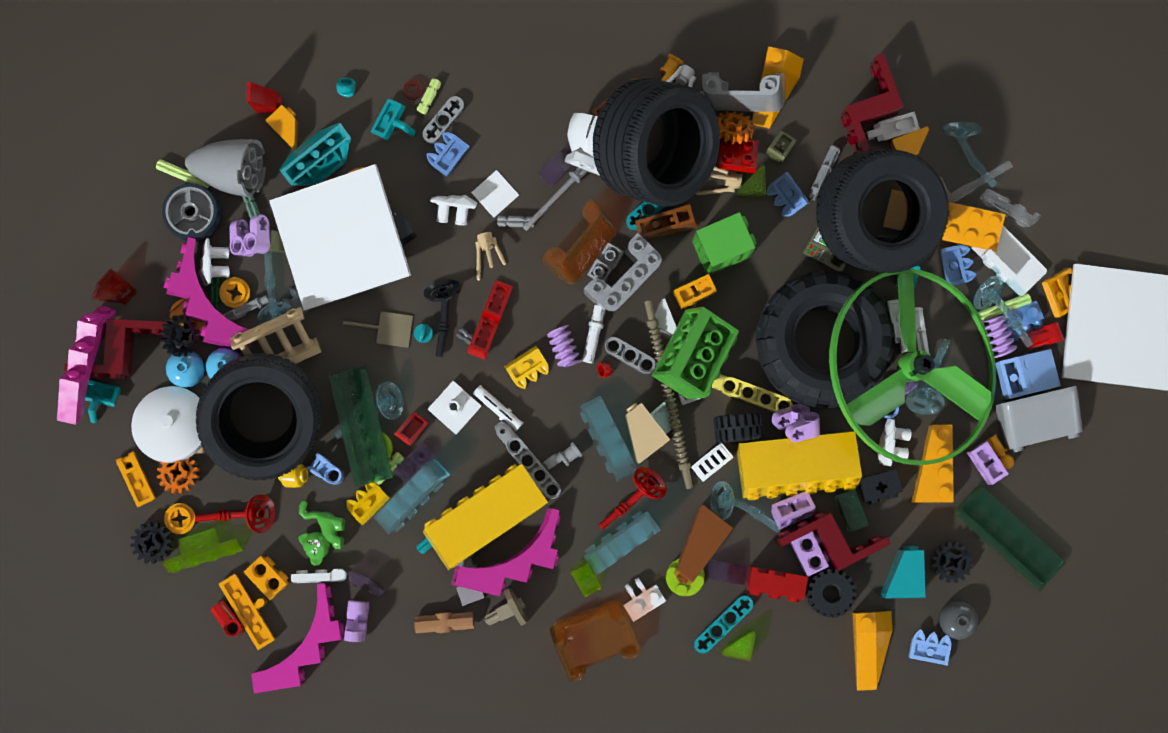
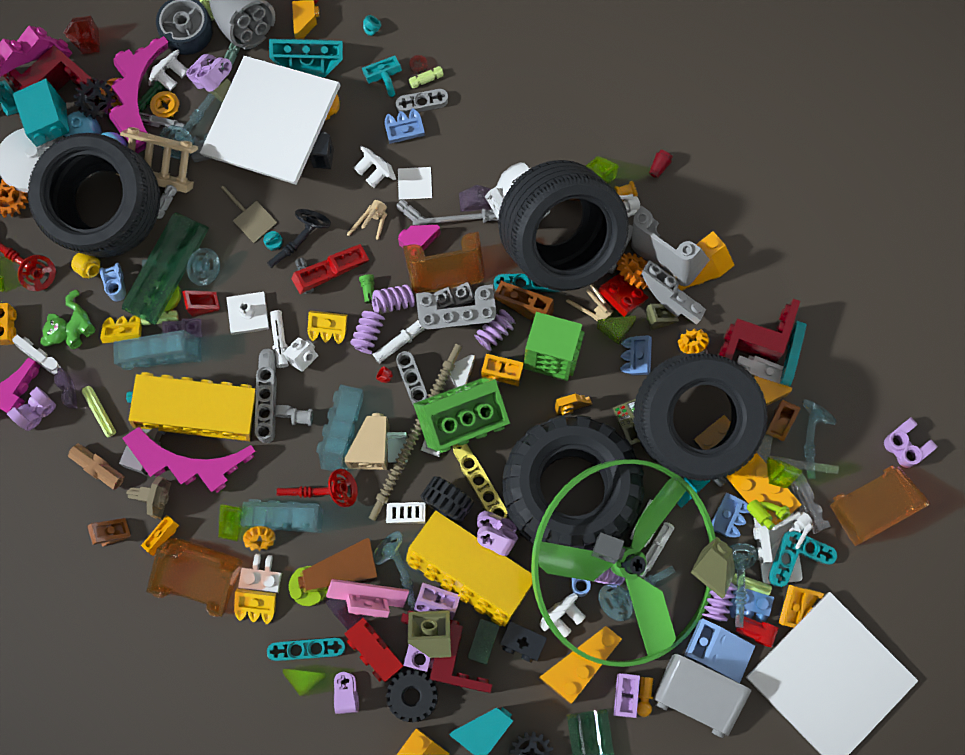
camera: 40 degrees right, 10 degrees down
(149, 382) = (42, 112): none -> teal slope
(308, 362) = (166, 199): none -> light grey axle
(406, 579) = (98, 411): none -> yellowish green axle
(499, 661) = (109, 531): none -> dark orange slope
(527, 406) = (300, 354): none -> white brick
(530, 308) = (367, 284): none -> bright green pin
(538, 238) = (421, 235): none -> dark pink slope
(540, 633) = (160, 534): none -> light orange plate
(560, 303) = (391, 297): none -> lavender piece
(614, 577) = (251, 536): none -> light orange gear
(636, 63) = (604, 168): none -> clear neon green slope
(657, 623) = (254, 603): none -> yellow plate
(661, 274) = (495, 329): none -> lavender piece
(679, 20) = (660, 163): none -> dark red cone
(741, 550) = (367, 598): none -> bright pink bracket
(769, 278) = (572, 402): none -> light orange wing
(777, 127) = (666, 291): none -> light grey slope
(785, 634) = (345, 699): none -> lavender piece
(813, 536) = (430, 632): none -> olive slope
(827, 152) = (694, 346): none -> light orange gear
(896, 369) = (608, 548): none -> dark grey brick
(907, 98) = (793, 353): none -> teal beam
(939, 156) = (782, 420): none -> dark orange slope
(972, 201) = (781, 473): none -> clear neon green slope
(980, 315) = (715, 567): none -> olive slope
(982, 247) = (759, 512): none -> lime plant
(1013, 229) = (800, 522): none -> white plant
(1026, 249) = (785, 542): none -> teal beam
(1045, 102) = (906, 446): none -> lavender piece
(1062, 167) = (878, 505): none -> clear orange windscreen

